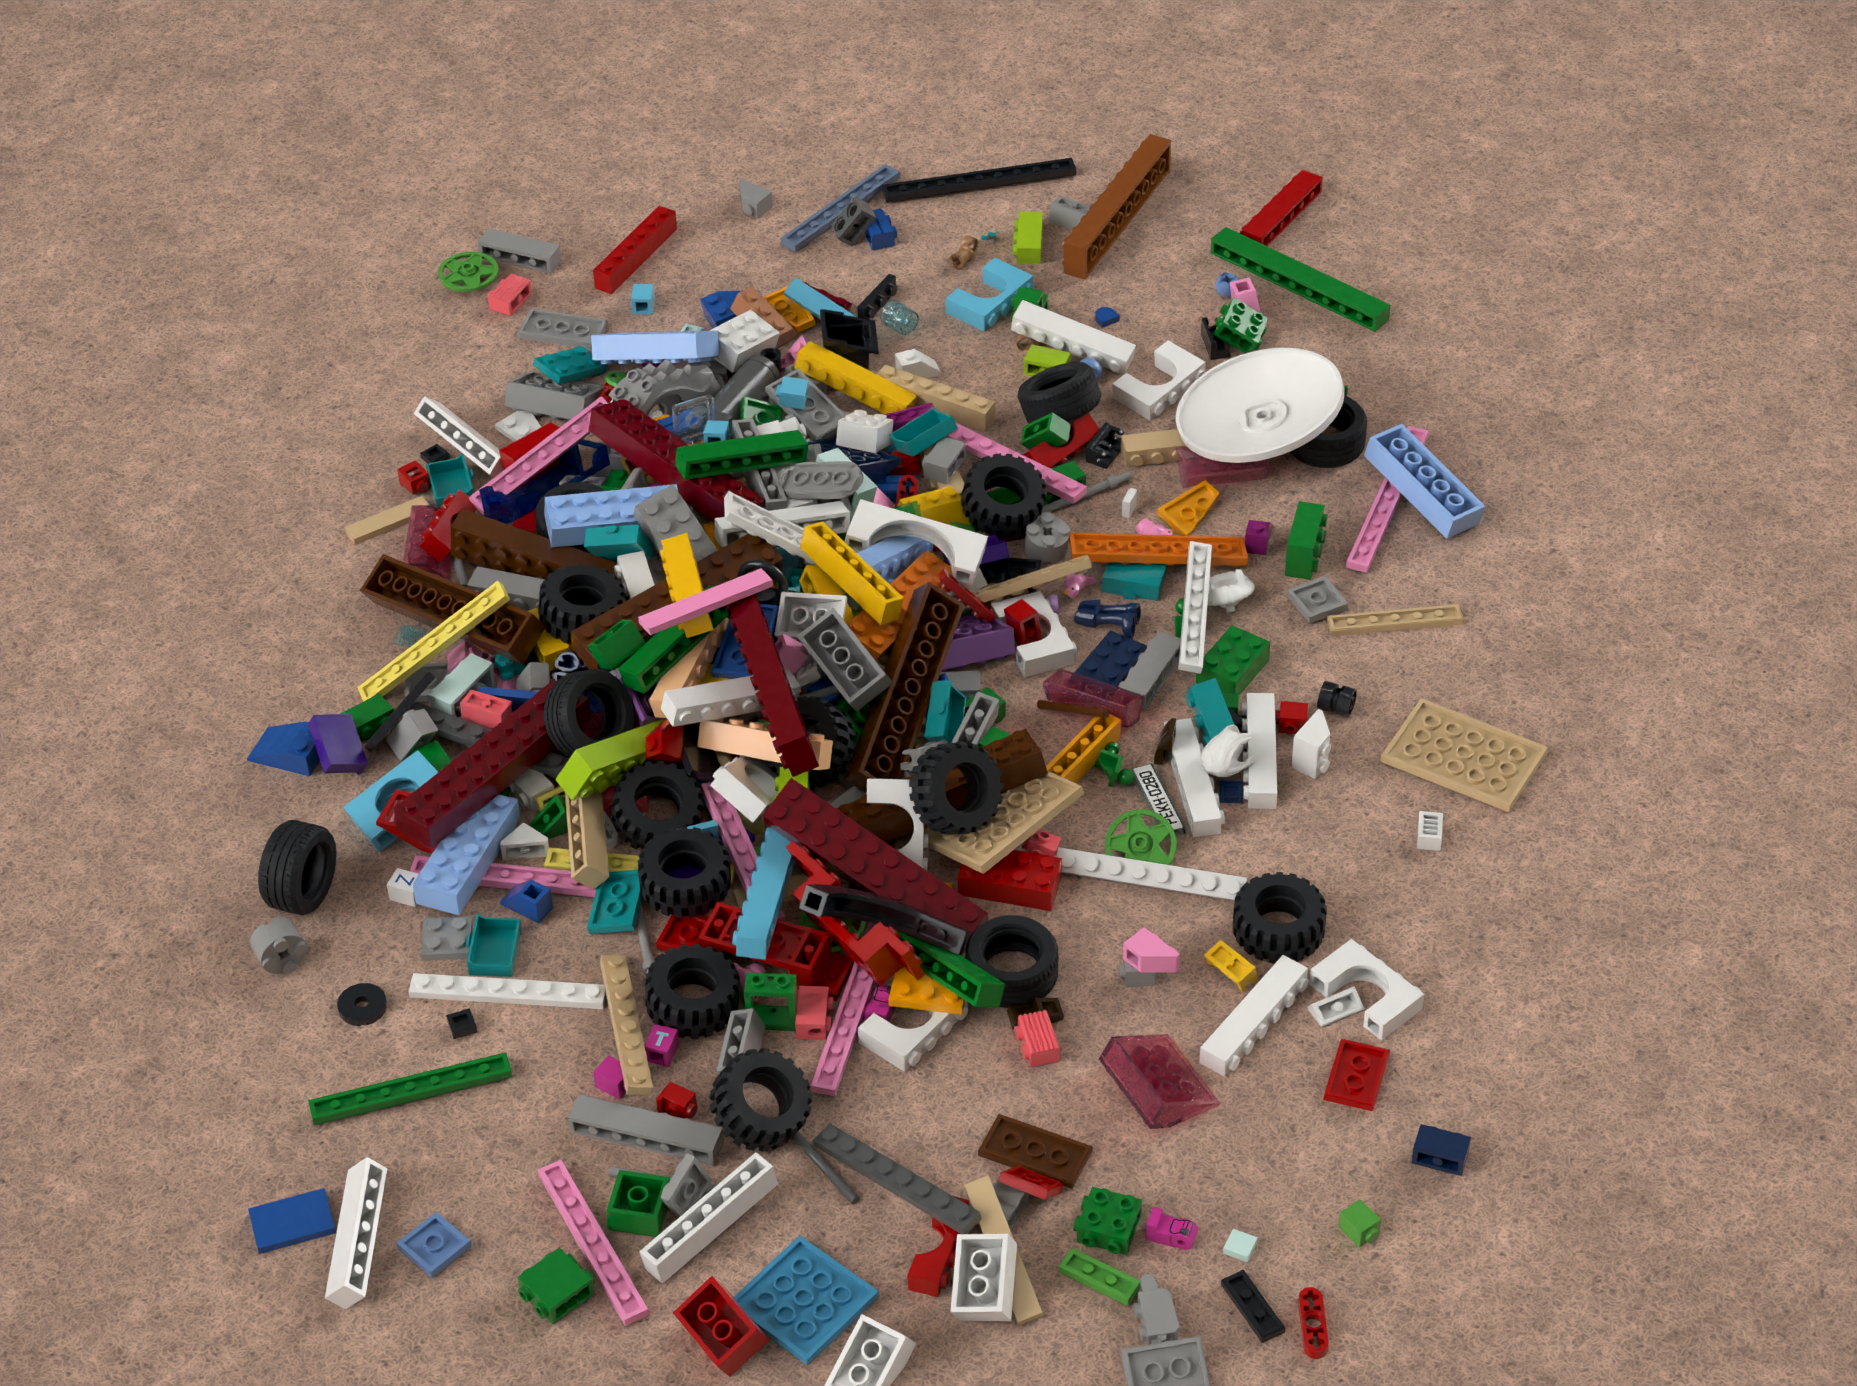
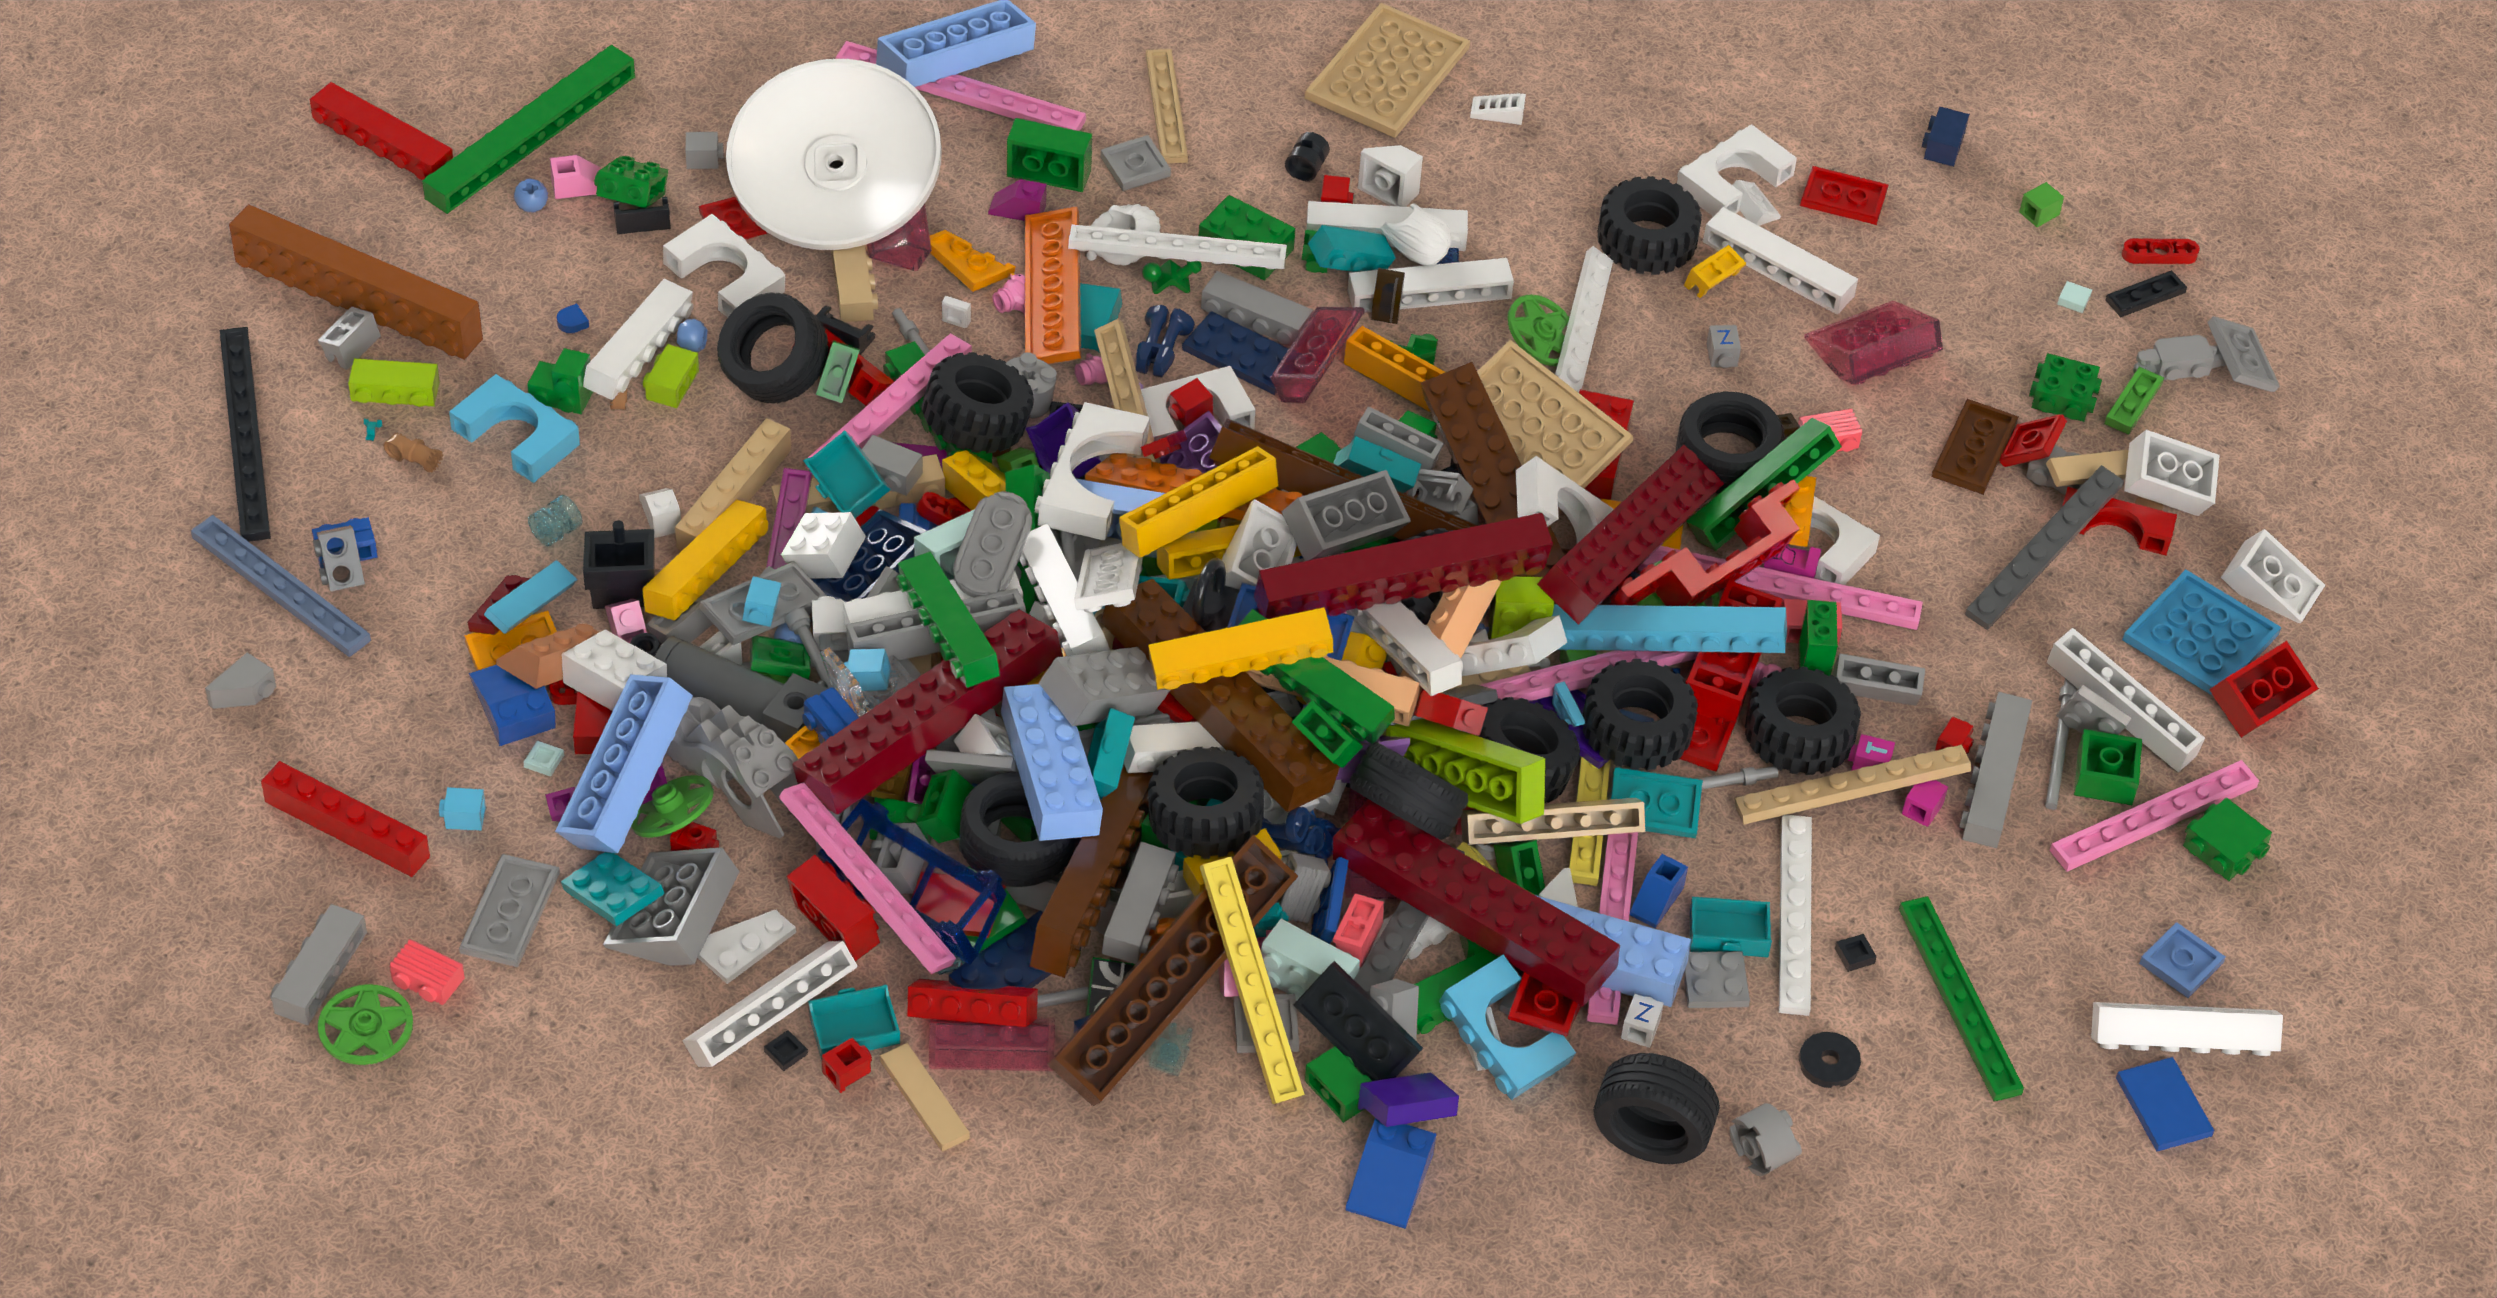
camera: 95 degrees left, 5 degrees up
(705, 601) = (1311, 605): bright pink tile -> none
(740, 1119) = (1970, 647): black tyre -> none
(825, 1167) = (2020, 618): dark grey bar -> none
(873, 908) = (1705, 510): black arch -> none
(878, 297) = (505, 545): black plate -> none
(982, 788) = (1546, 429): black tyre -> none
(1073, 708) = (1334, 372): reddish brown bar -> none
(1150, 954) = (1724, 319): bright pink slope -> none
(1156, 797) = (1461, 320): tile -> none
(1170, 1230) = (2070, 338): dark pink leg -> none

